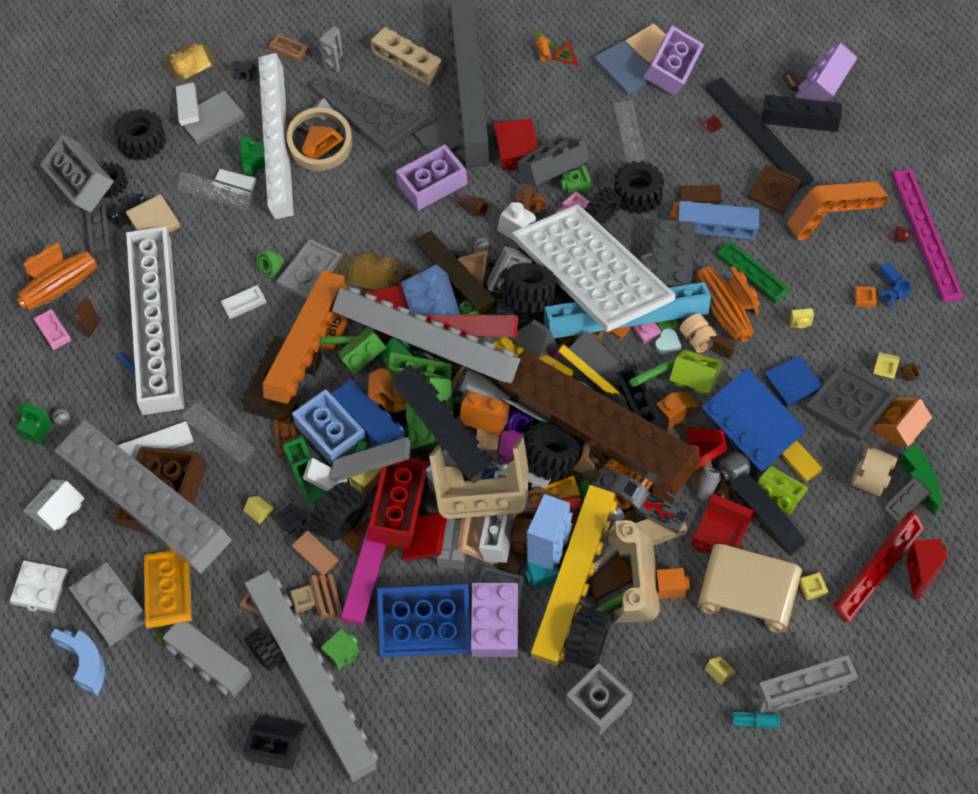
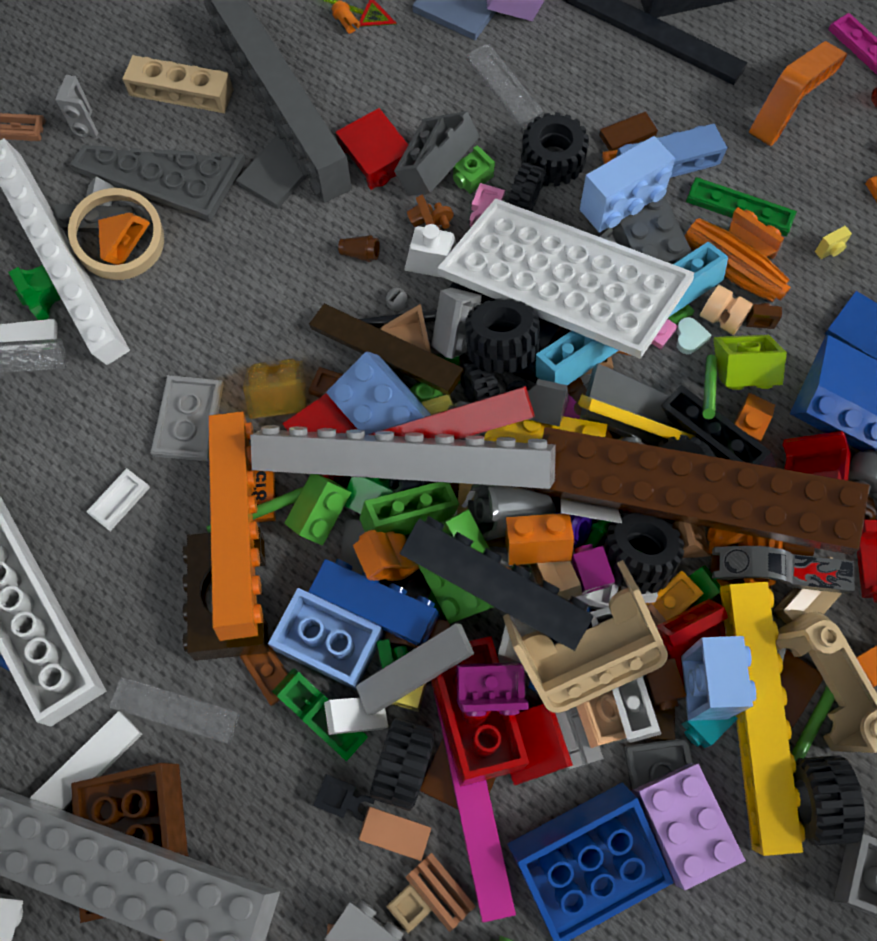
camera: 25 degrees left, 10 degrees up
(257, 509) = (281, 798): light yellow slope -> none
(269, 263) = (129, 431): bright green brick -> none
(410, 483) = (491, 688): none -> magenta bracket
(431, 177) = (290, 231): lavender brick -> none
(662, 223) = (626, 184): none -> light blue brick
(713, 124) = (596, 39): clear red hinge -> none
(774, 189) = (711, 93): reddish brown tile -> none

